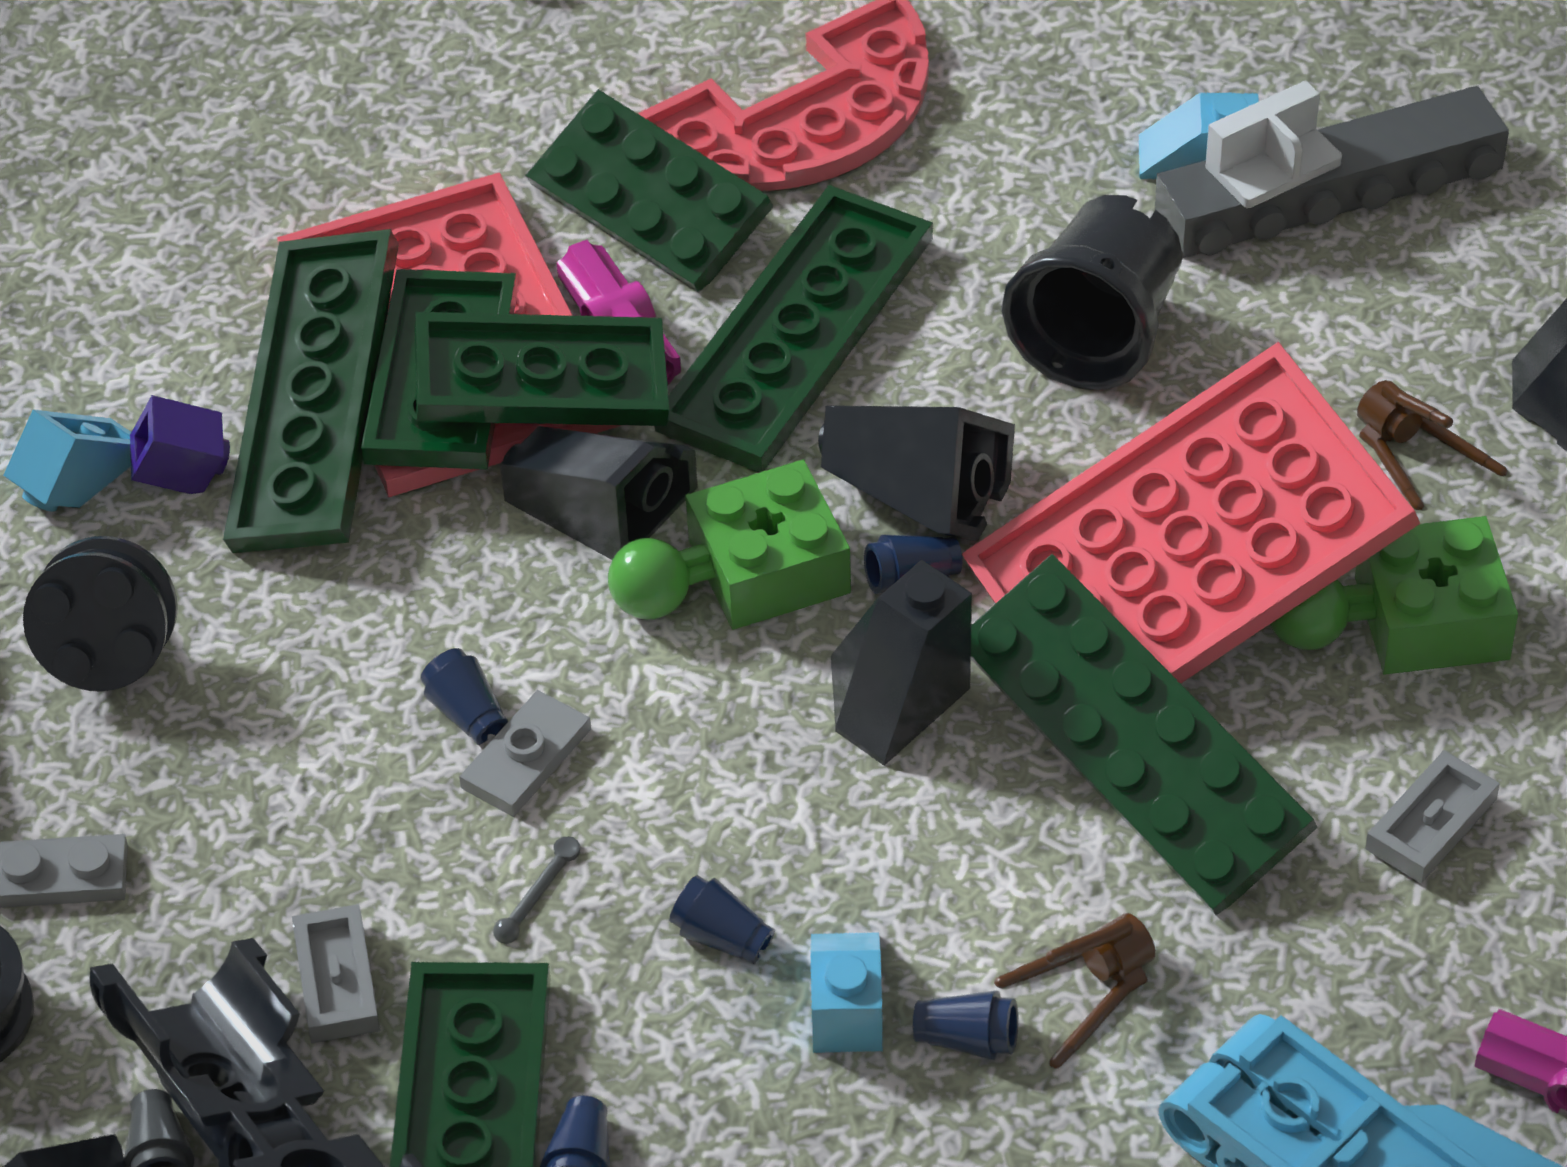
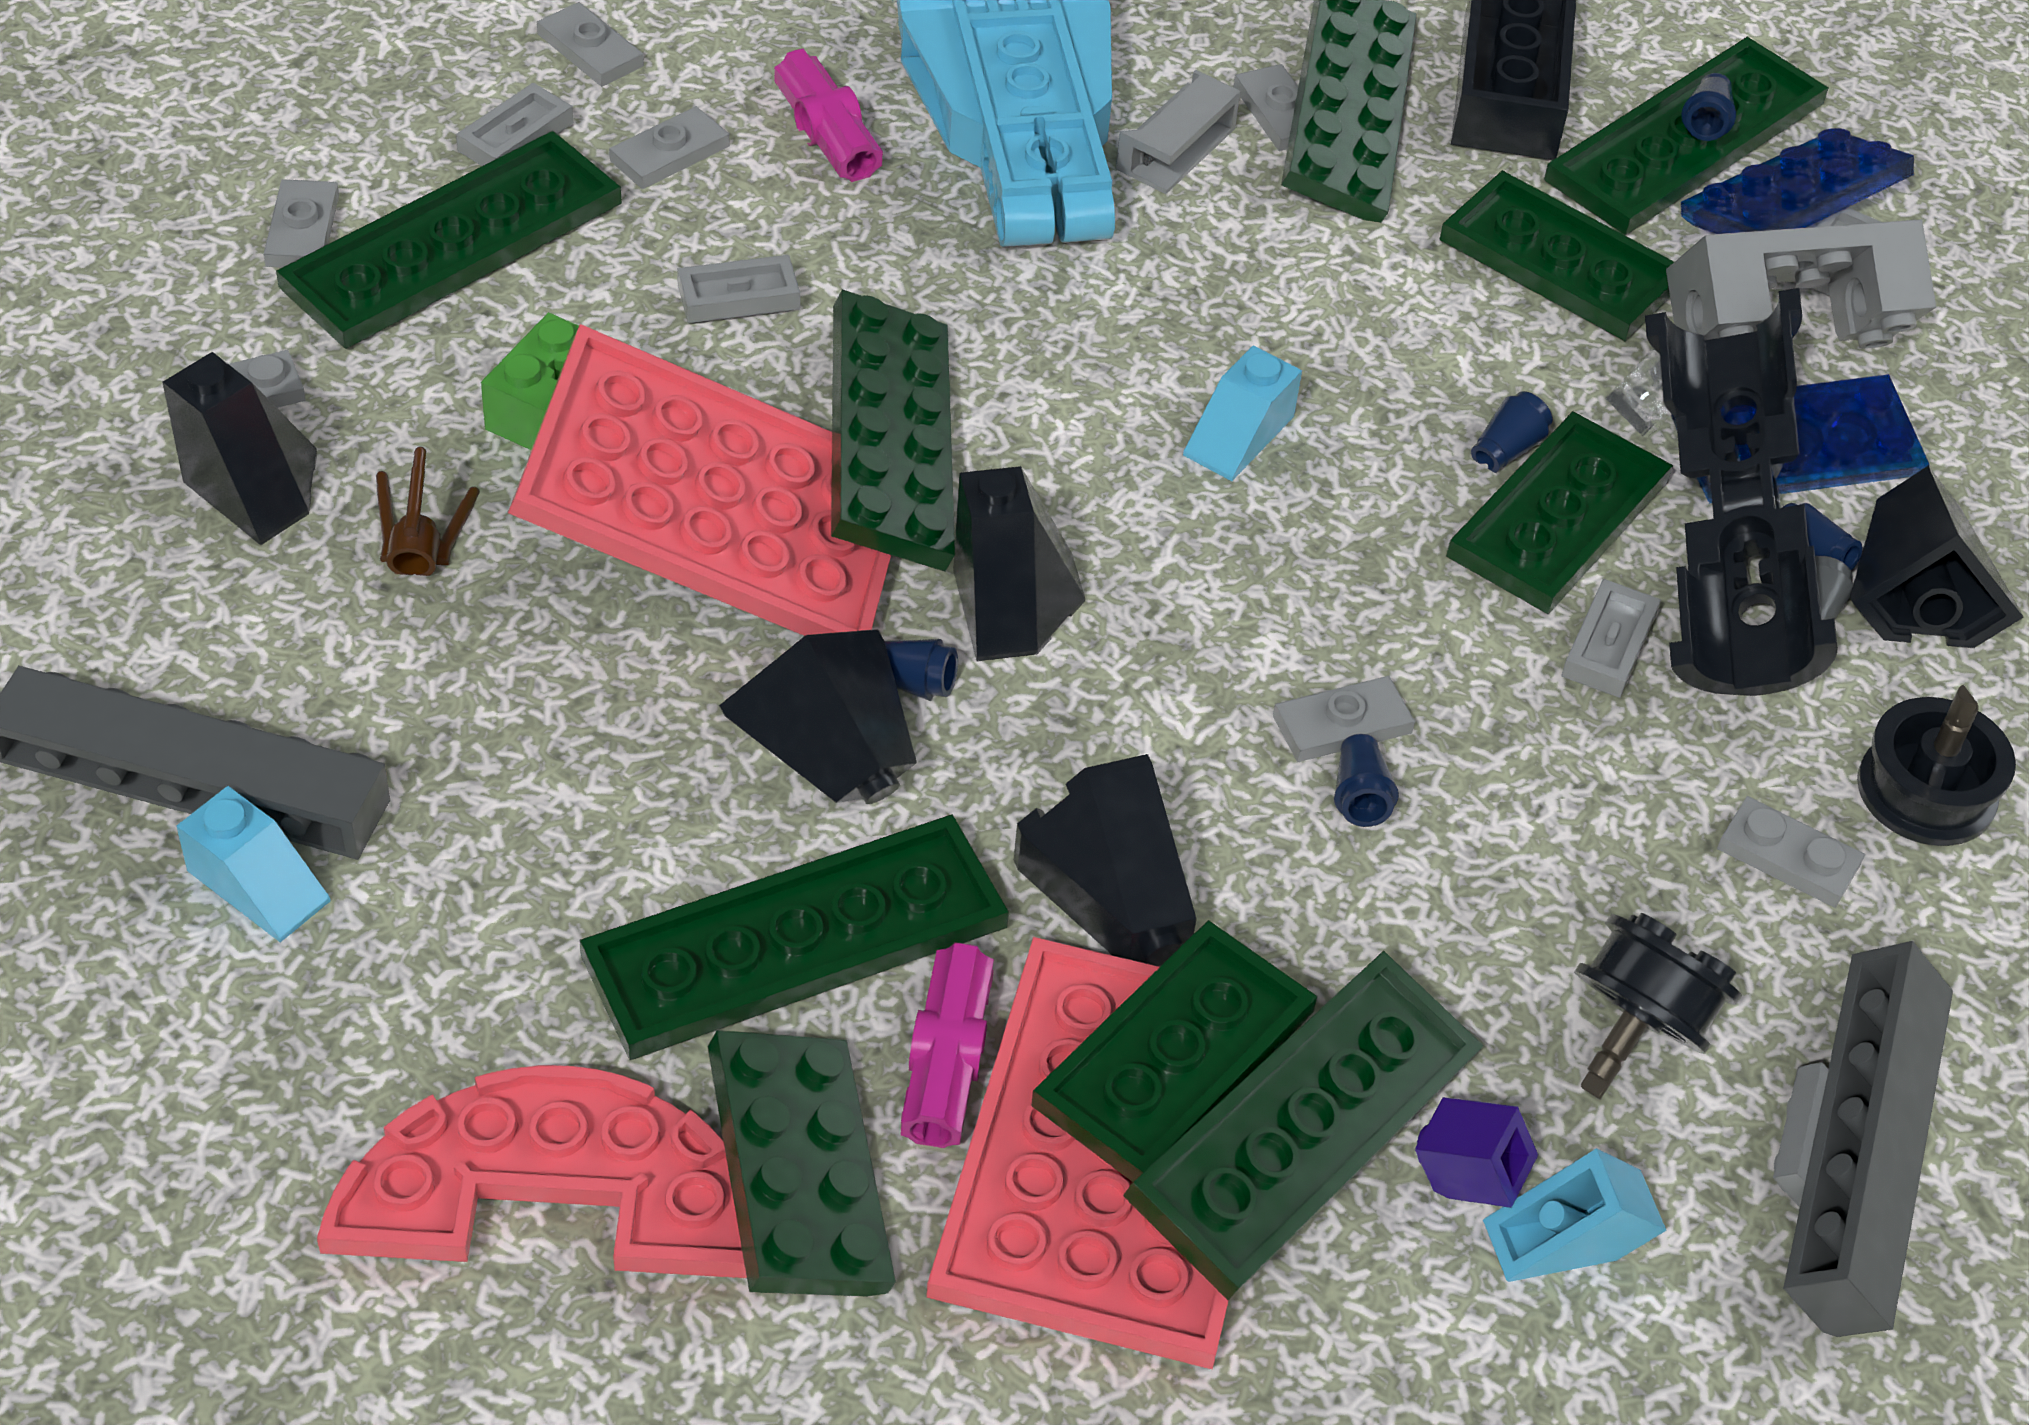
camera: 150 degrees left, 0 degrees up
(507, 929) = (1366, 637): dark grey hinge -> none
(540, 369) = (1105, 946): dark green plate -> none
(720, 920) = (1297, 510): dark blue cone -> none
(756, 540) = (1029, 729): bright green brick -> none
(968, 1023) = (1178, 351): dark blue cone -> none
(1094, 295) = (539, 736): black piece -> none
(1109, 952) = (1042, 332): reddish brown plant -> none
(1270, 146) = (242, 755): white panel -> none

